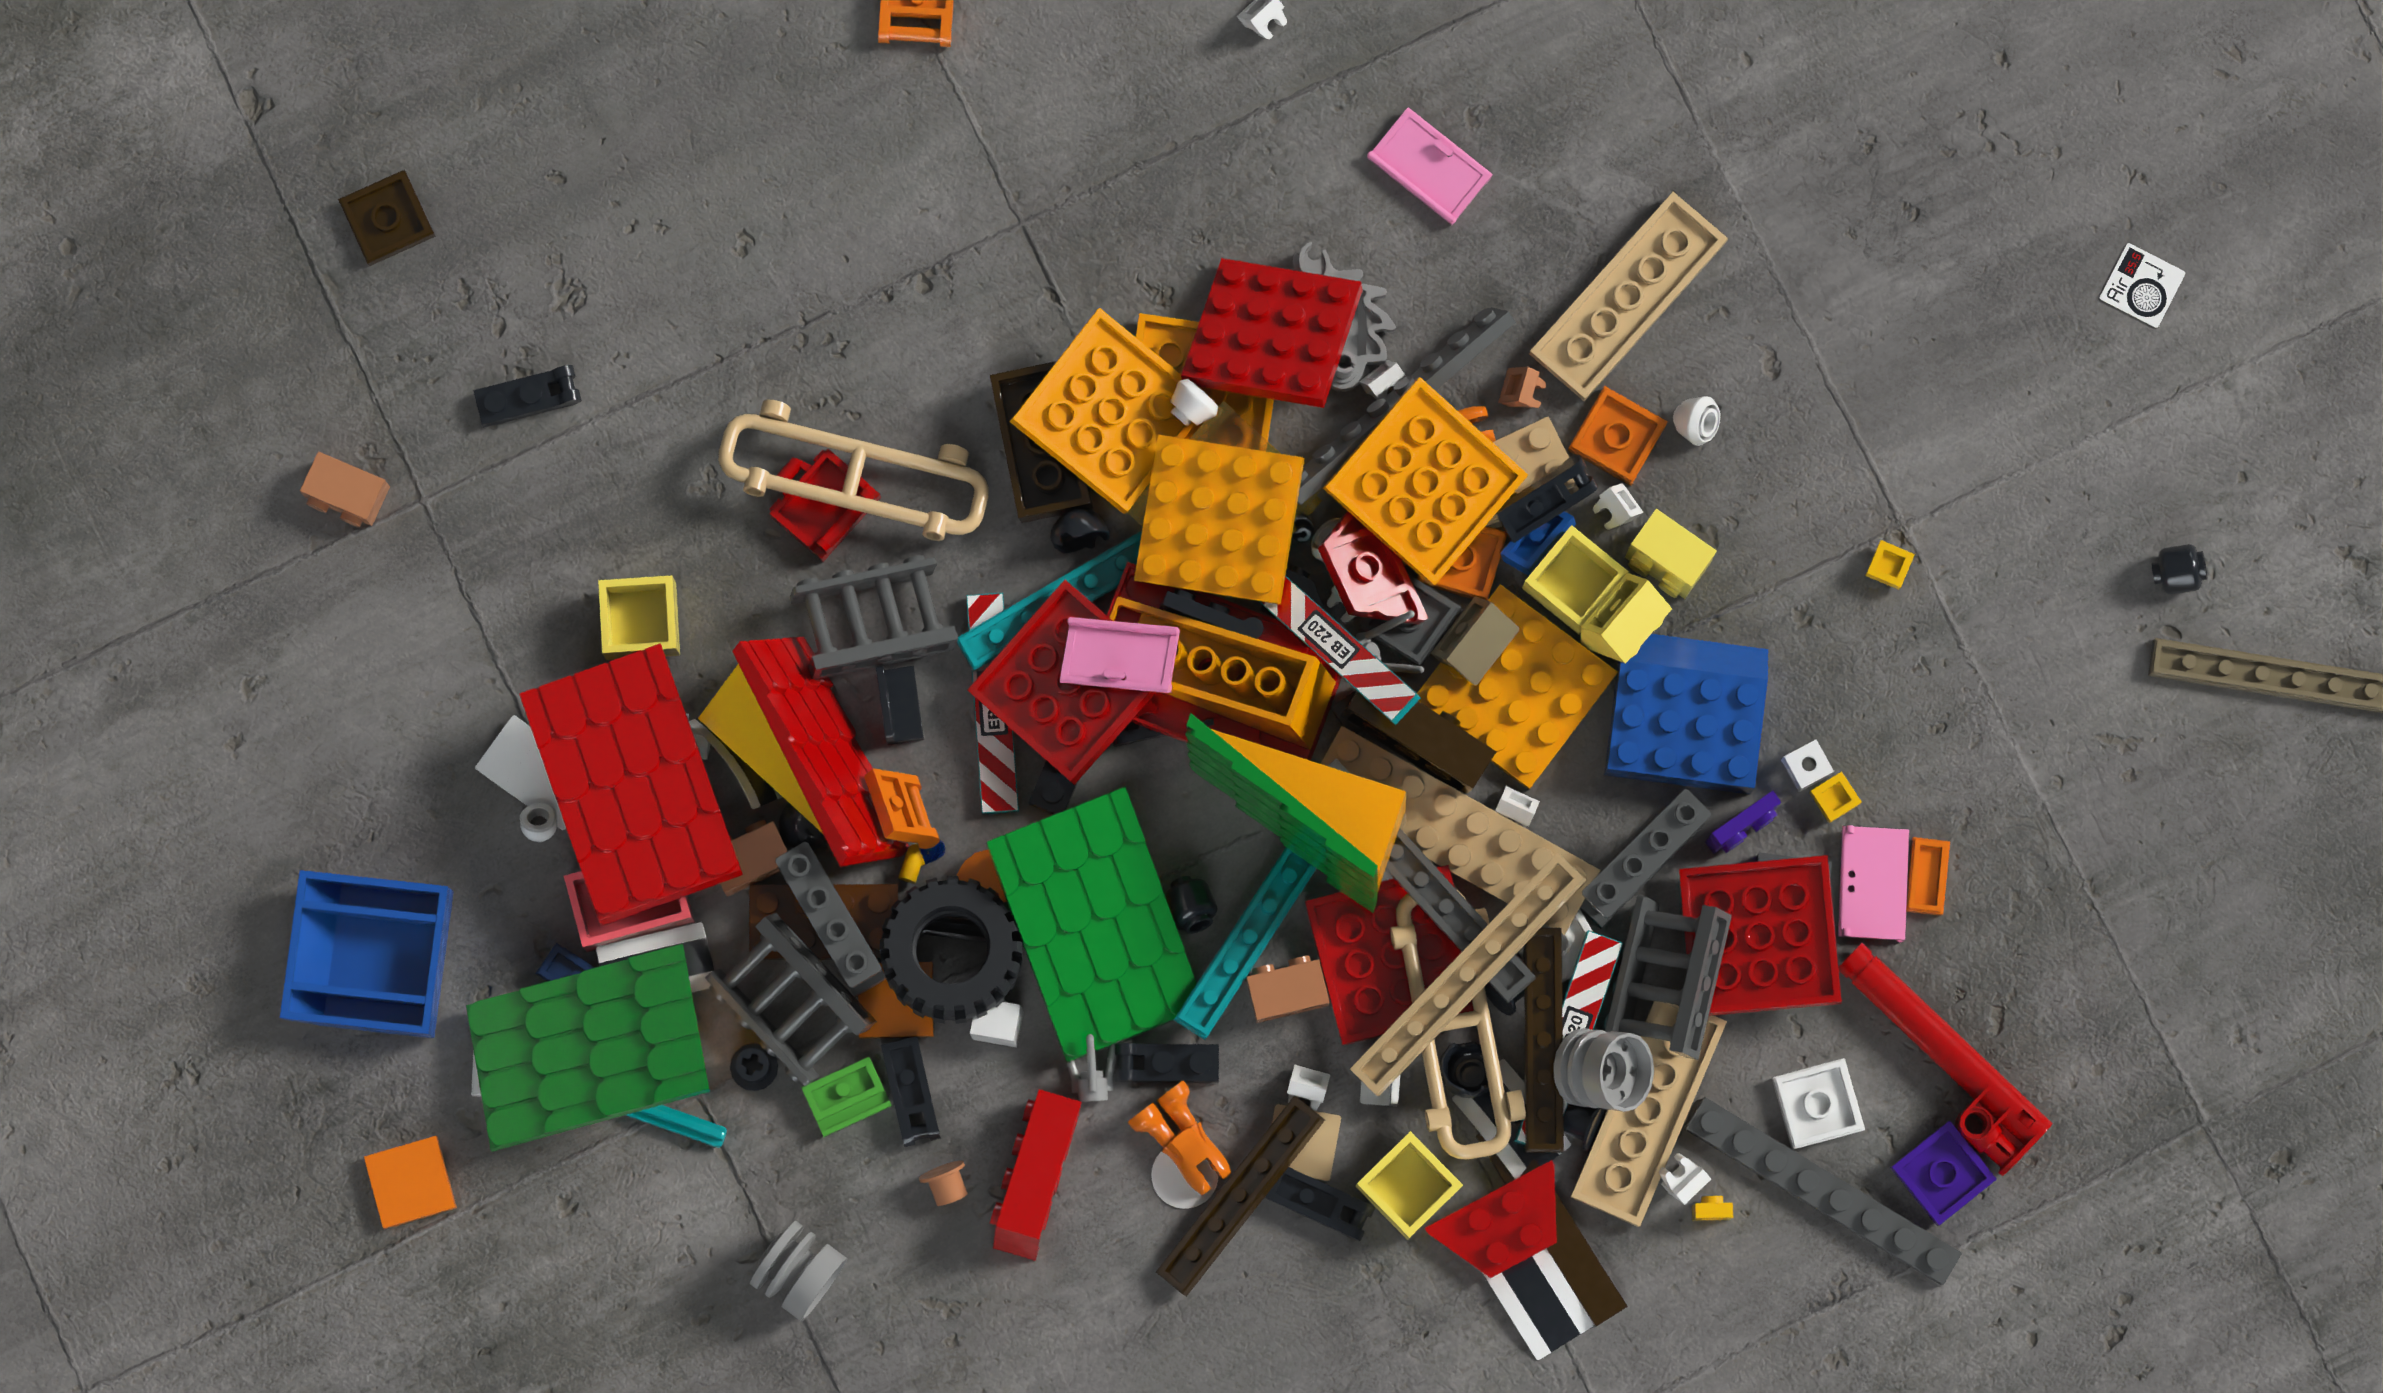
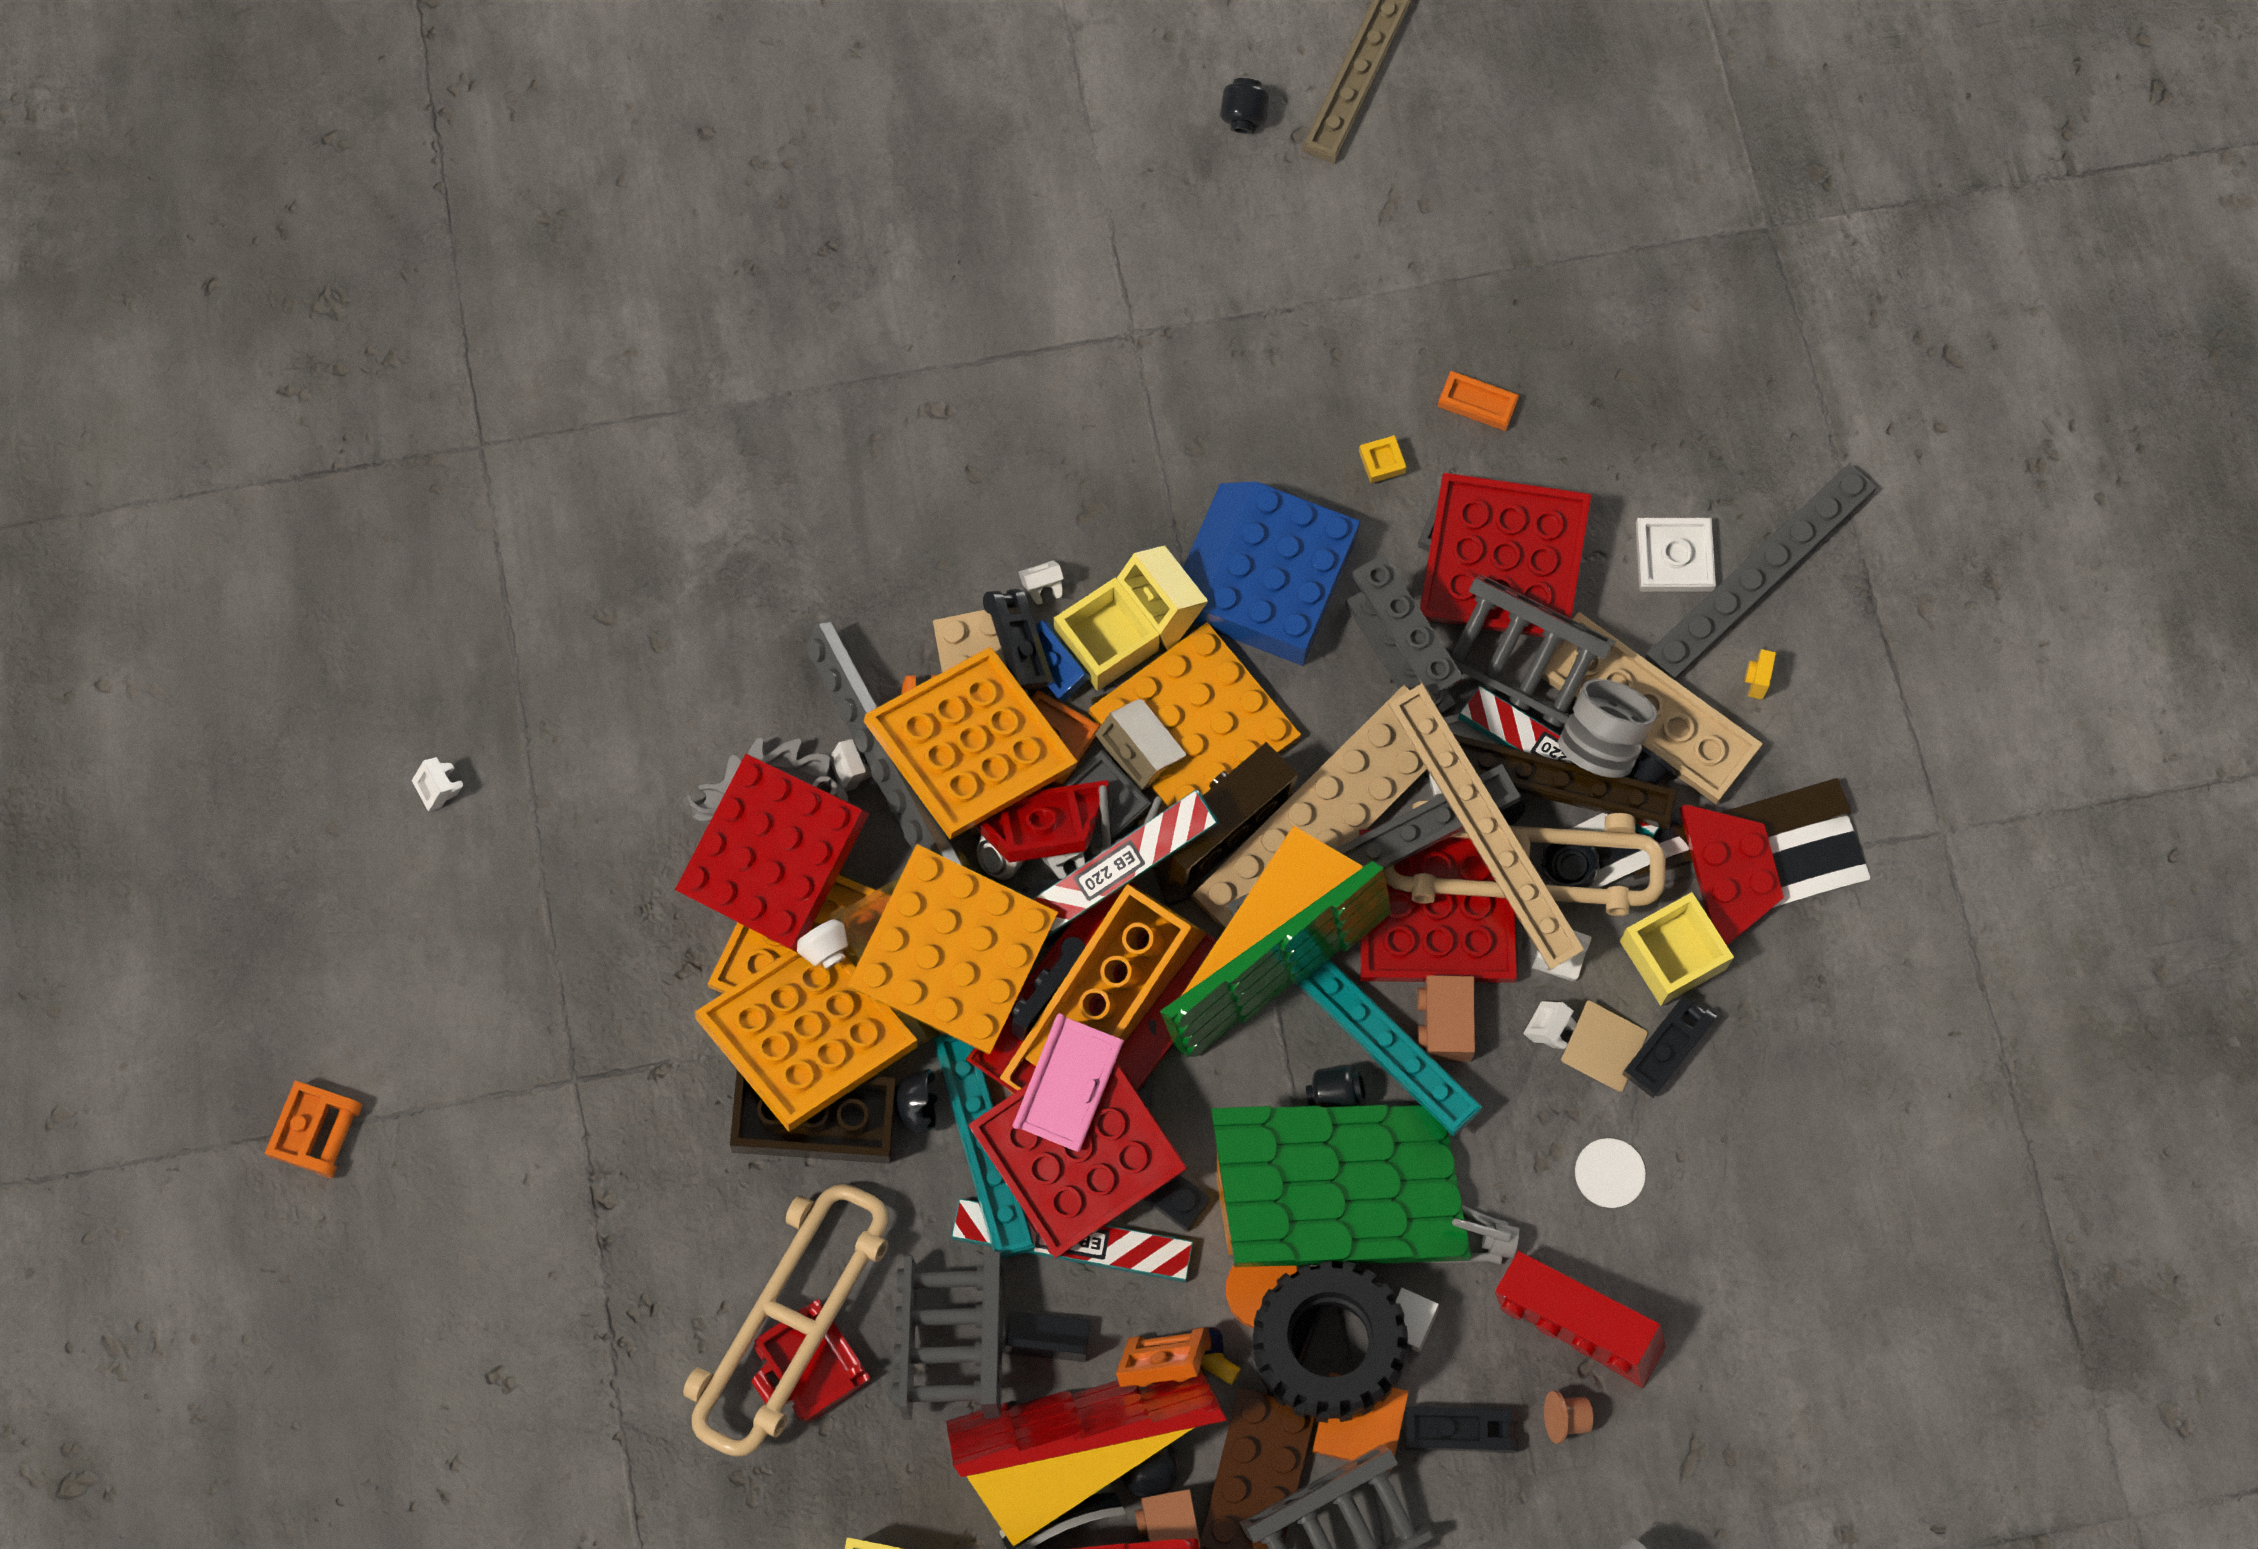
camera: 75 degrees left, 10 degrees down
(830, 919) = (1269, 1457): dark grey fence -> none
(846, 1097) = (1452, 1498): bright green plate -> none
(1168, 1063) = (1492, 1157): black plate -> none
(1188, 1146) = (1584, 1156): orange piece -> none
(1240, 1196) = (1648, 1119): dark brown tile -> none
(1425, 170) = (647, 672): bright pink door -> none
(1517, 806) = (1317, 750): white tile -> none
(1520, 387) = (896, 638): nougat tile -> none
(1617, 435) = (969, 563): orange tile -> none
(1628, 296) = (835, 516): tan plate -> none
(1669, 555) = (1106, 538): light yellow piece -> none
(1685, 1180) = (1726, 690): white tile -> none
(1697, 419) = (977, 484): white cone -> none
(1755, 817) = (1388, 538): dark purple plate -> none
(1801, 777) = (1340, 485): white piece -> none
(1879, 883) = (1473, 442): bright pink door -> none
(1890, 564) = (1169, 352): yellow plate -> none
(1943, 1173) = (1769, 459): dark purple plate -> none
(2007, 1116) = (1731, 389): red piece -> none
(2142, 285) = (962, 71): white sticker -> none

